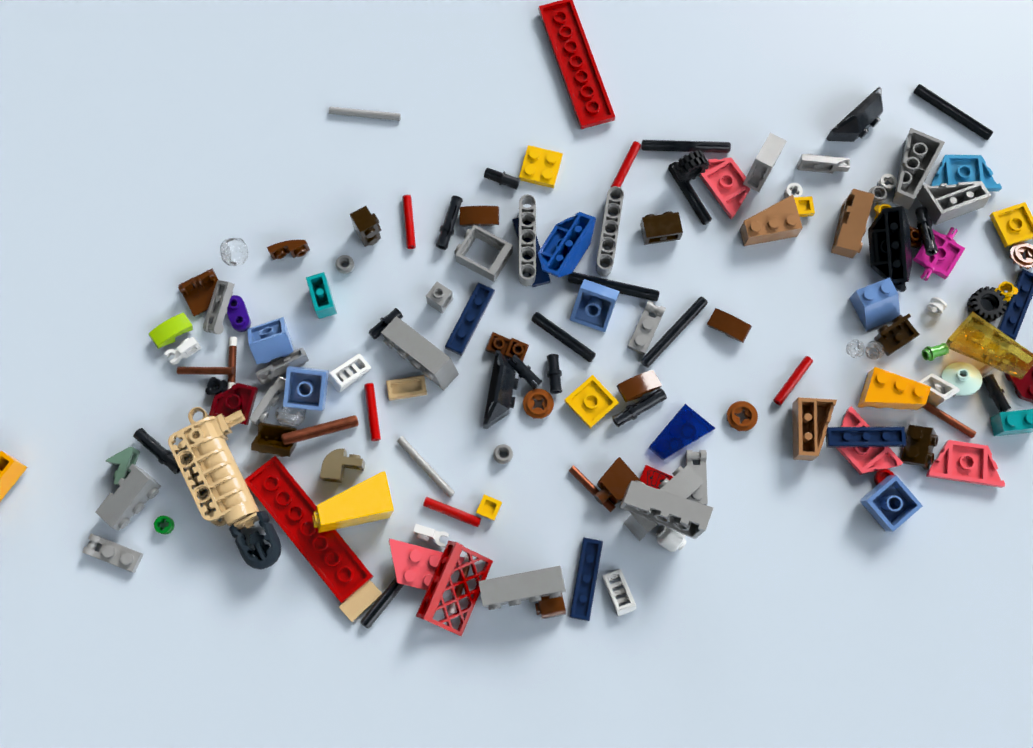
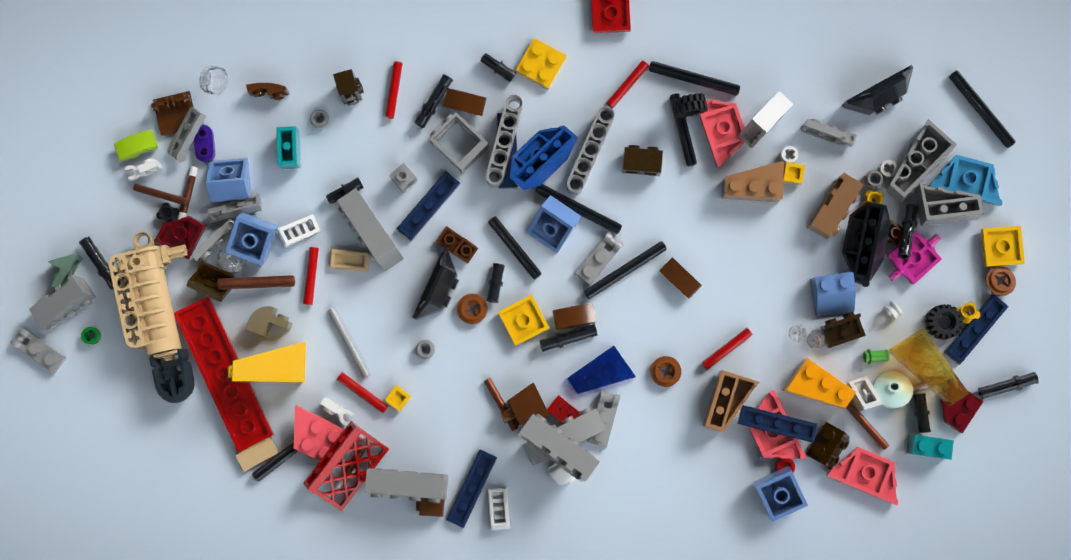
camera: 15 degrees right, 10 degrees up
(524, 371) = (466, 274): black pin -> none

